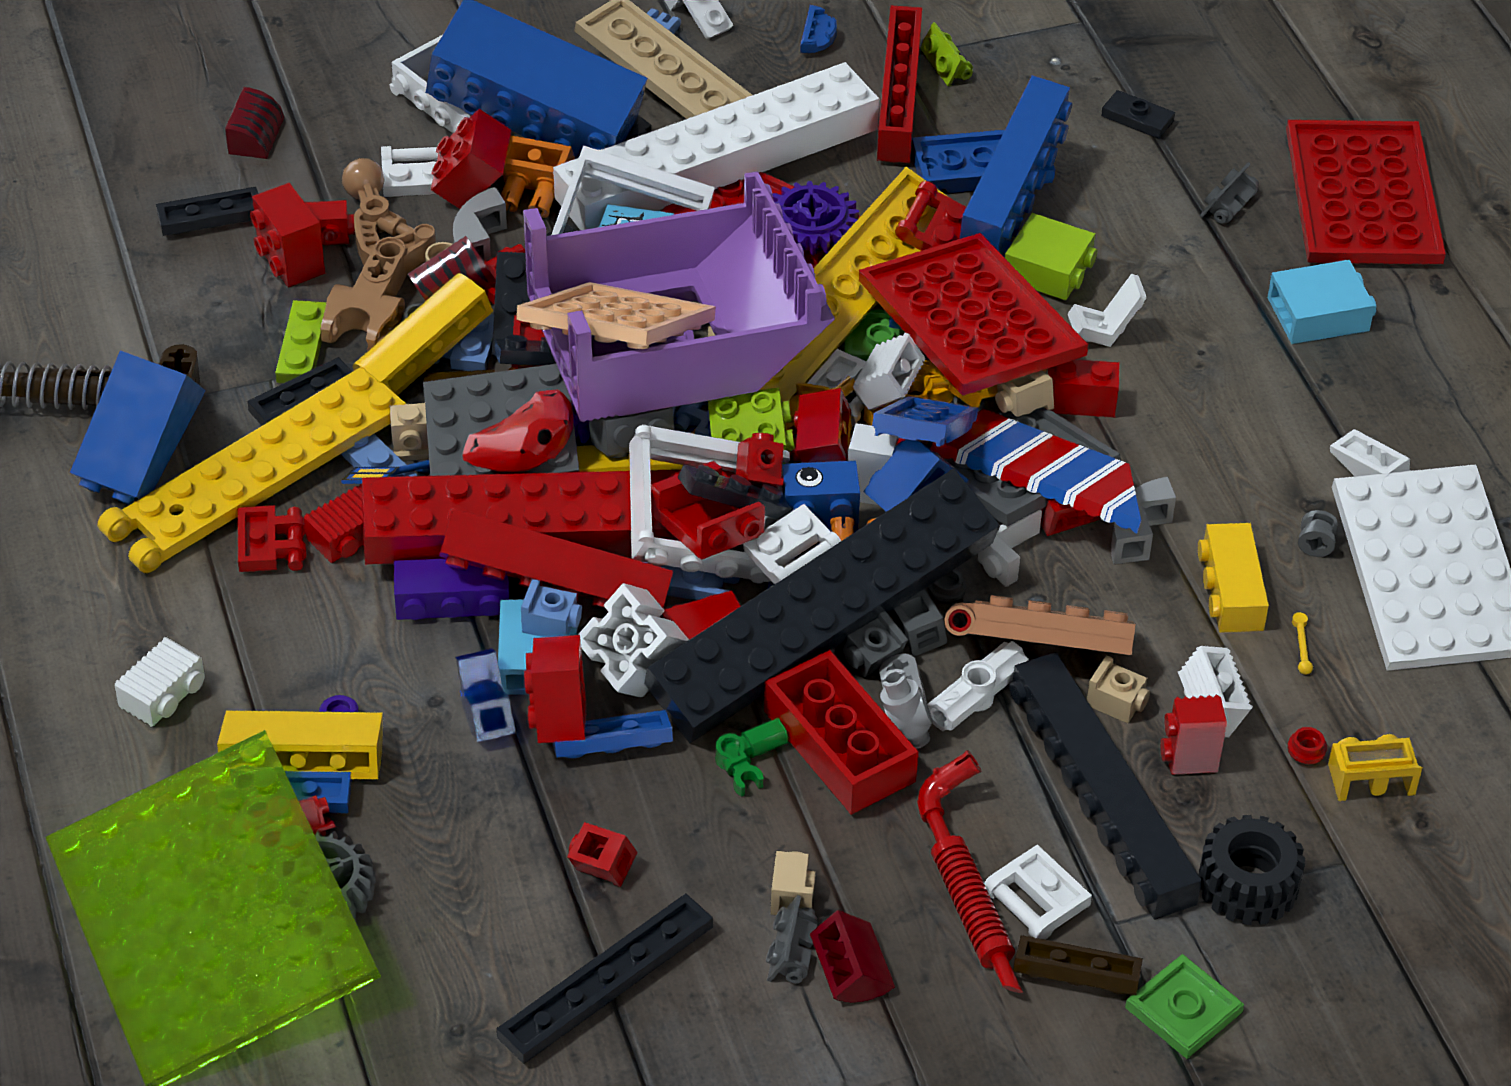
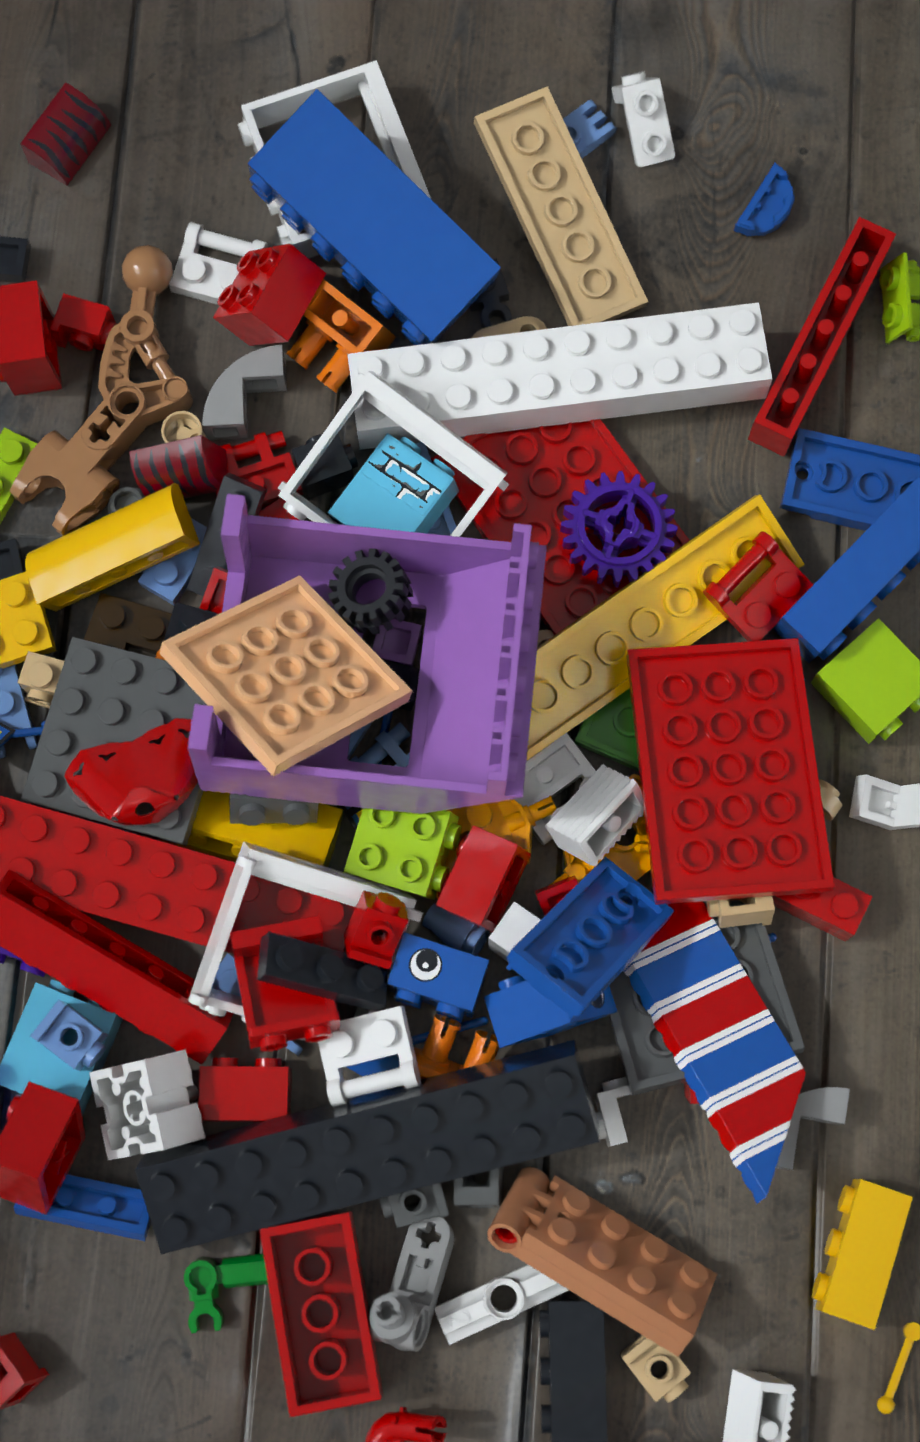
camera: 25 degrees right, 30 degrees up
(651, 270) = (355, 576): none -> black tyre

